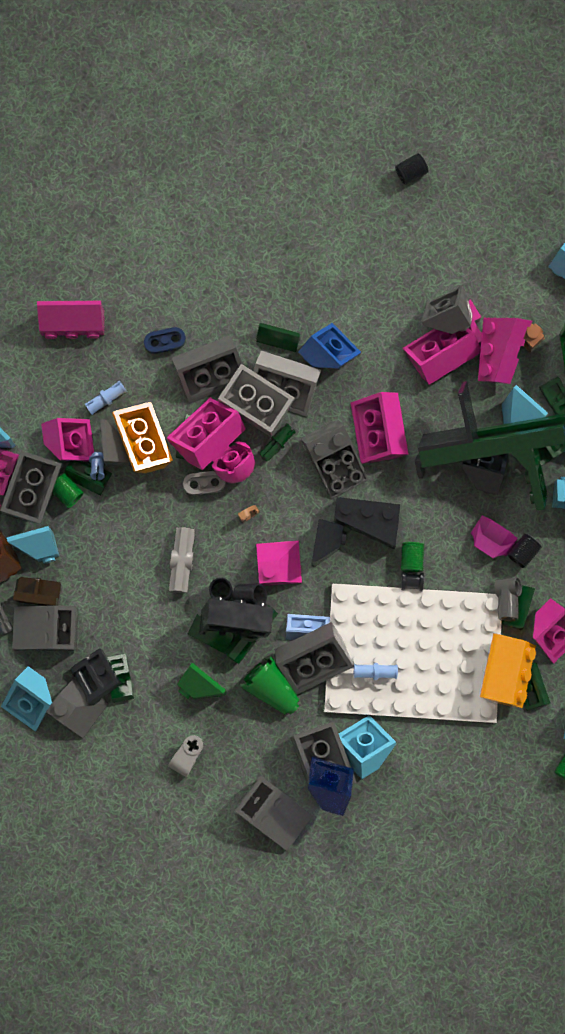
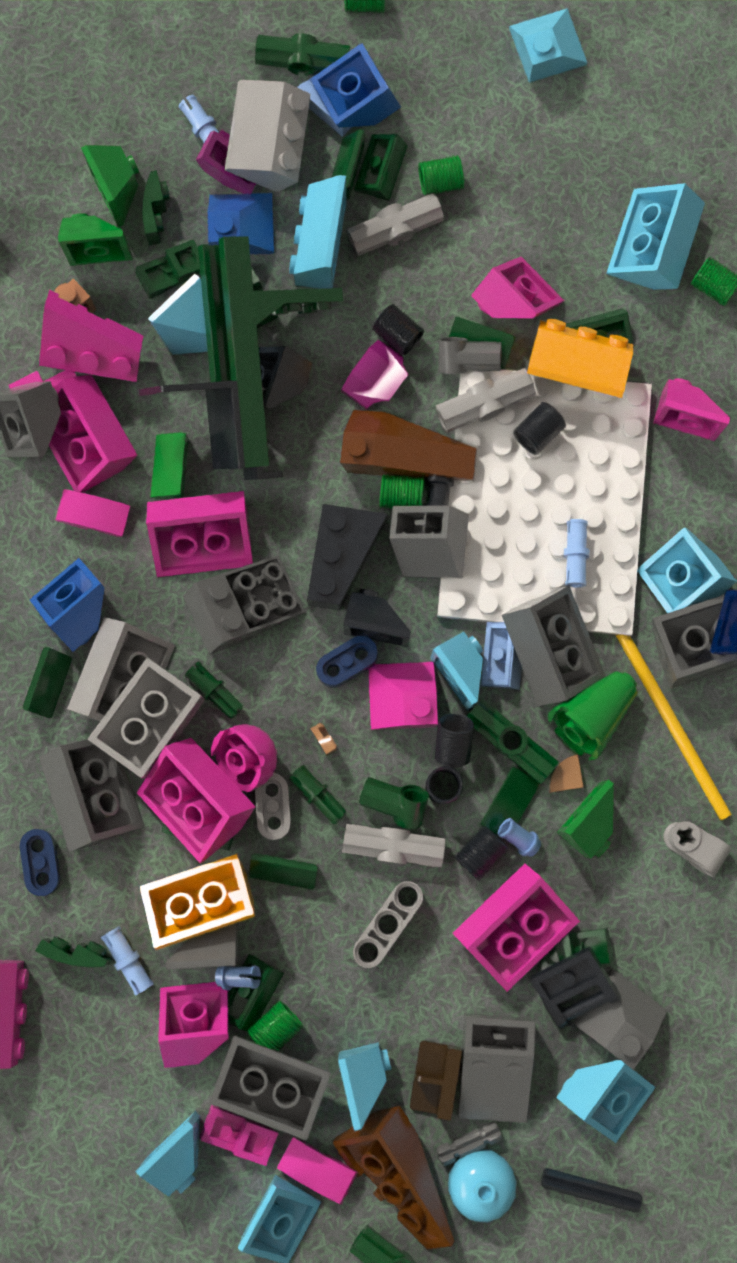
camera: 90 degrees left, 0 degrees up
(108, 371) = (84, 955): none -> dark green slope
(126, 549) = (382, 940): none -> light grey beam
(132, 638) = (516, 927): none -> dark pink slope
(164, 491) = (283, 871): none -> dark green slope
(178, 615) = (481, 853): none -> black piece
(190, 638) = (526, 842): none -> medium blue pin
(208, 566) = (403, 803): none -> dark green piece
(212, 511) = (318, 794): none -> dark green axle
(230, 670) = (566, 775): none -> medium nougat tile
(236, 617) = (494, 760): black wedge -> none
(265, 741) = (674, 726): none -> yellow piece
(298, 598) = (461, 666): none -> medium azure slope
(300, 526) = (344, 659): none -> dark blue plate
(379, 575) = (429, 540): none -> dark grey slope
(390, 358) = (92, 513): none -> dark pink slope
(424, 406) = (169, 466): none -> green slope
(444, 551) = (390, 445): none -> reddish brown wedge
(458, 644) = (539, 428): none -> black piece
(476, 608) = (485, 400): none -> light grey piece
(479, 744) = (690, 410): none -> dark pink slope

